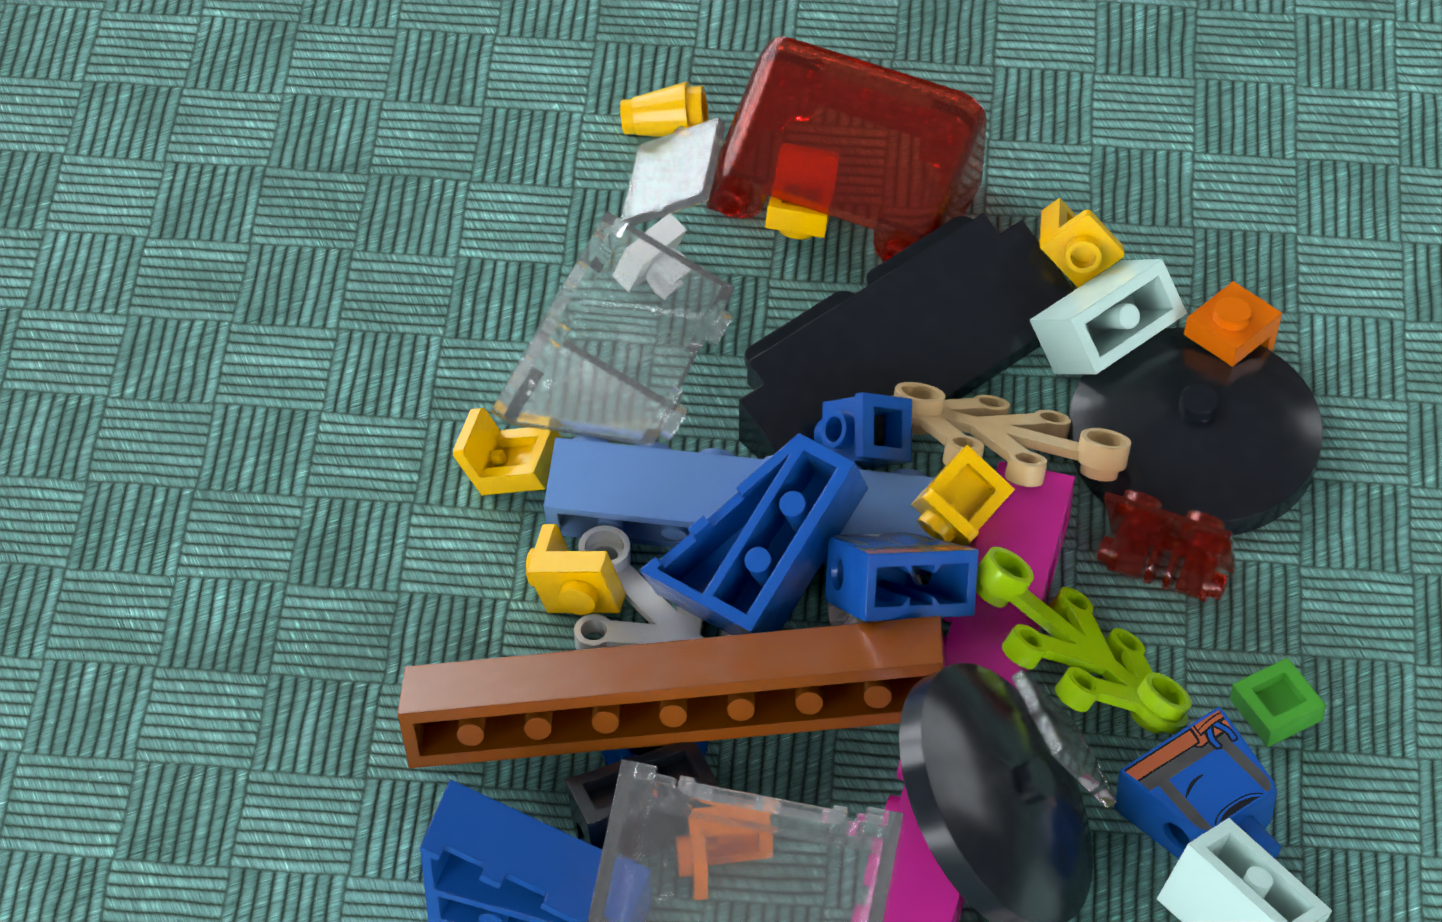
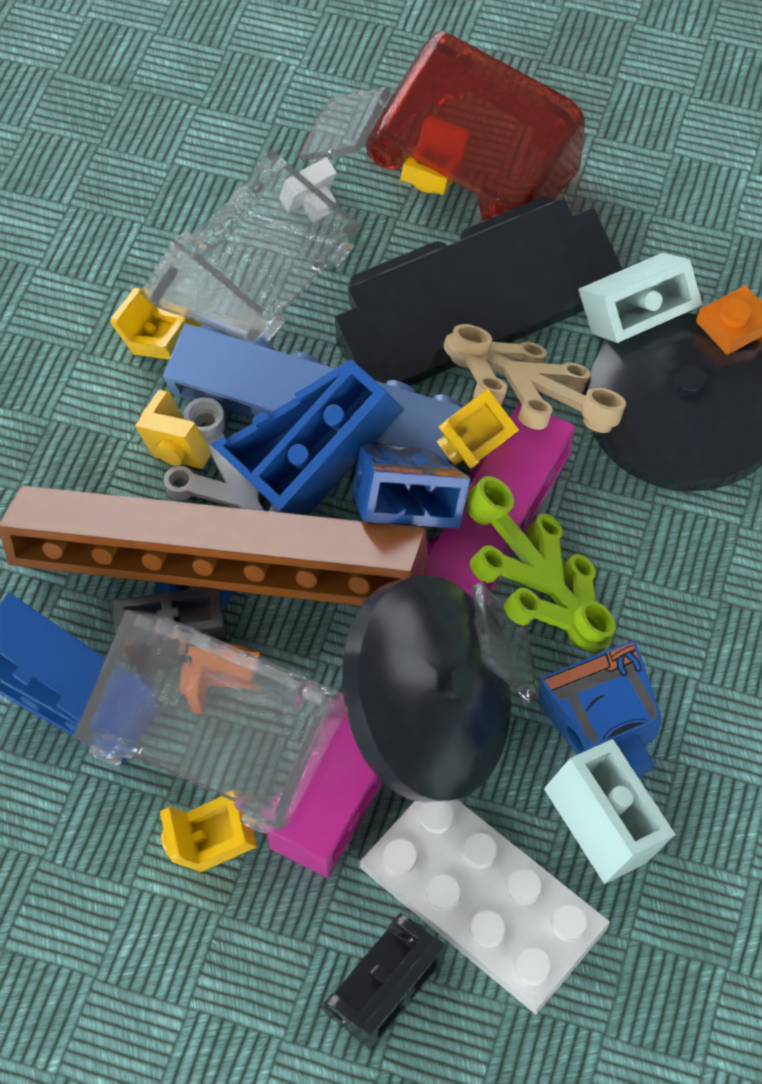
camera: 15 degrees right, 10 degrees up
(664, 110) = (353, 74): yellow cone -> none
(849, 429) = (410, 357): blue brick -> none
(1077, 242) = (632, 232): yellow bracket -> none
(1198, 537) = (618, 476): clear red hinge -> none
(1277, 702) = (687, 640): bright green plate -> none

